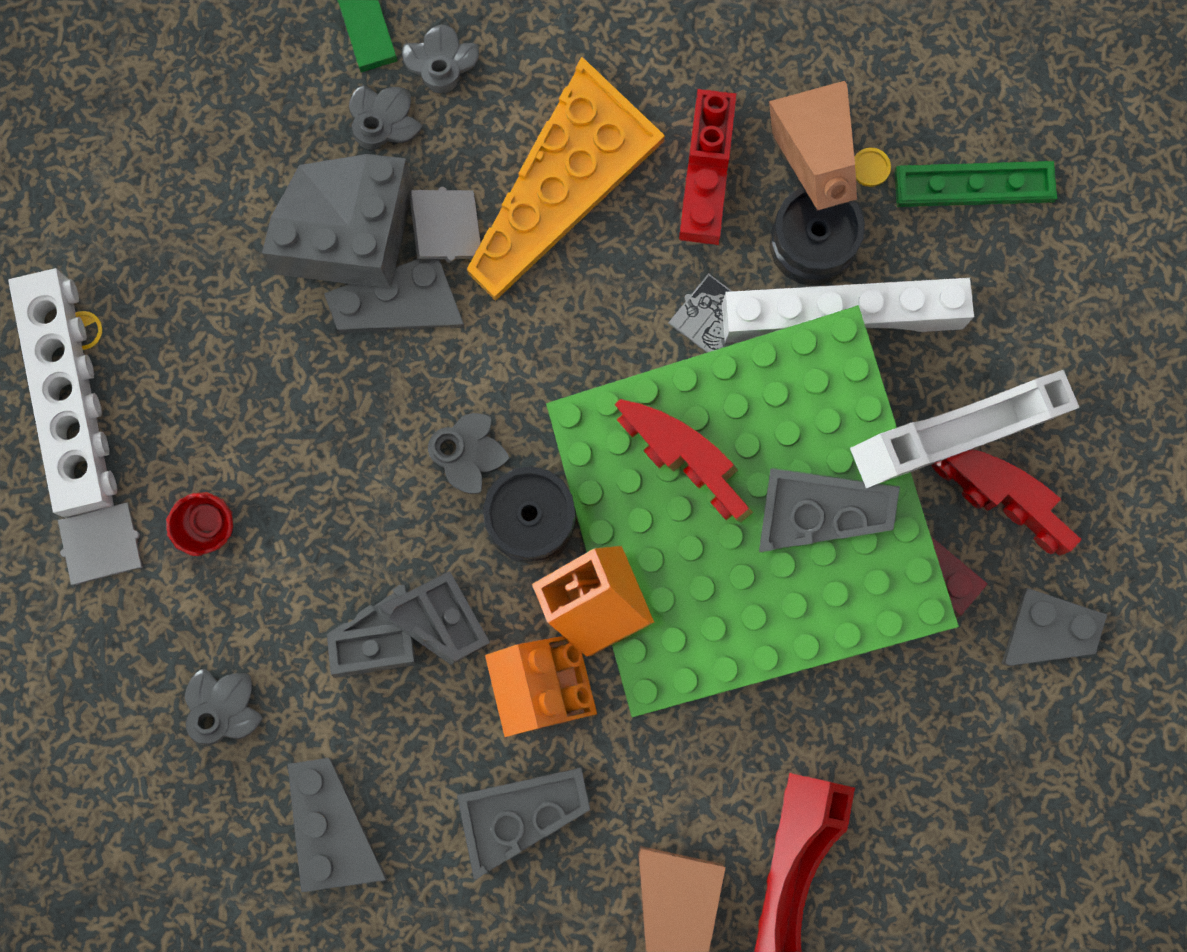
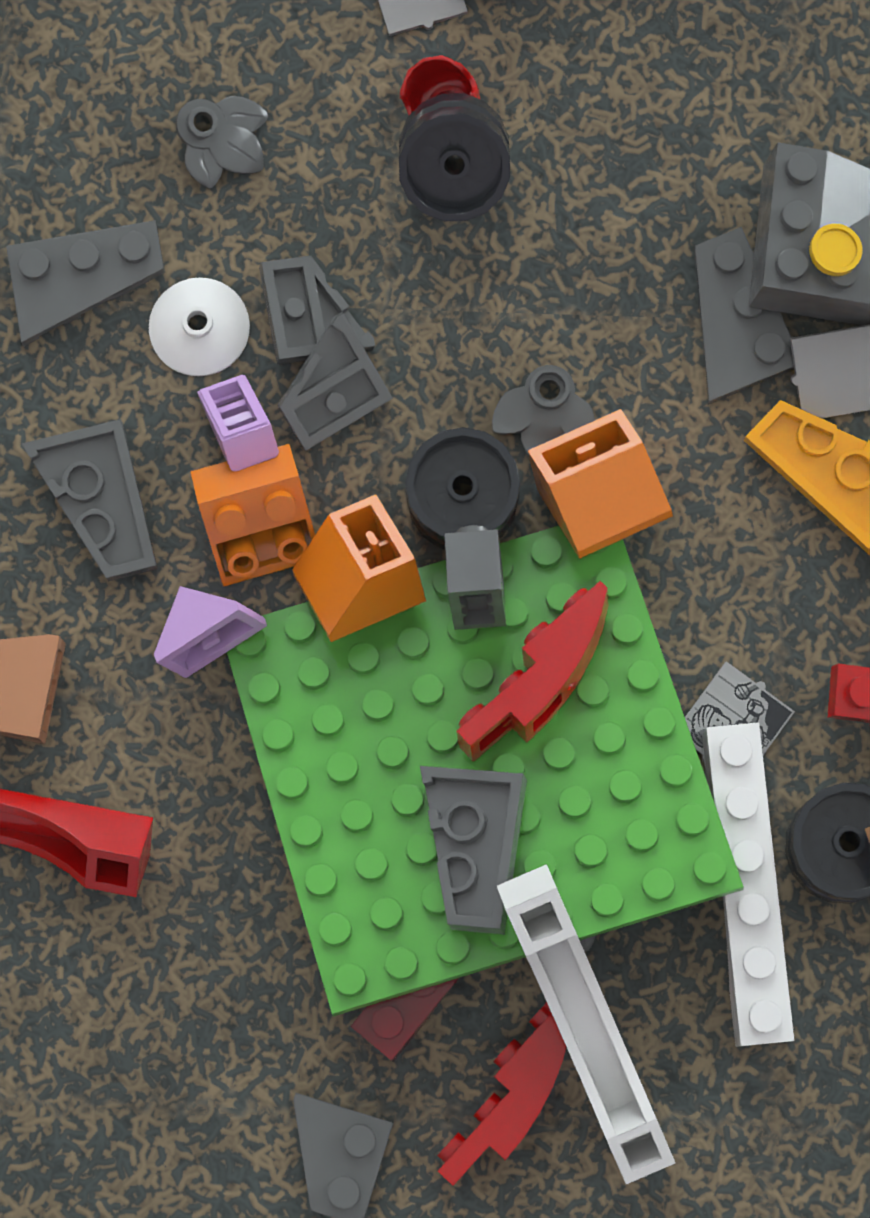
camera: 90 degrees right, 0 degrees up
(254, 511) = (427, 166): none -> black wheel
(354, 210) = (835, 249): none -> yellow piece
(400, 734) = (203, 350): none -> white dish
(466, 696) = (240, 426): none -> lavender slope
(530, 407) = (599, 483): none -> orange slope
(607, 502) = (475, 578): none -> dark grey brick
(636, 729) = (202, 630): none -> lavender slope

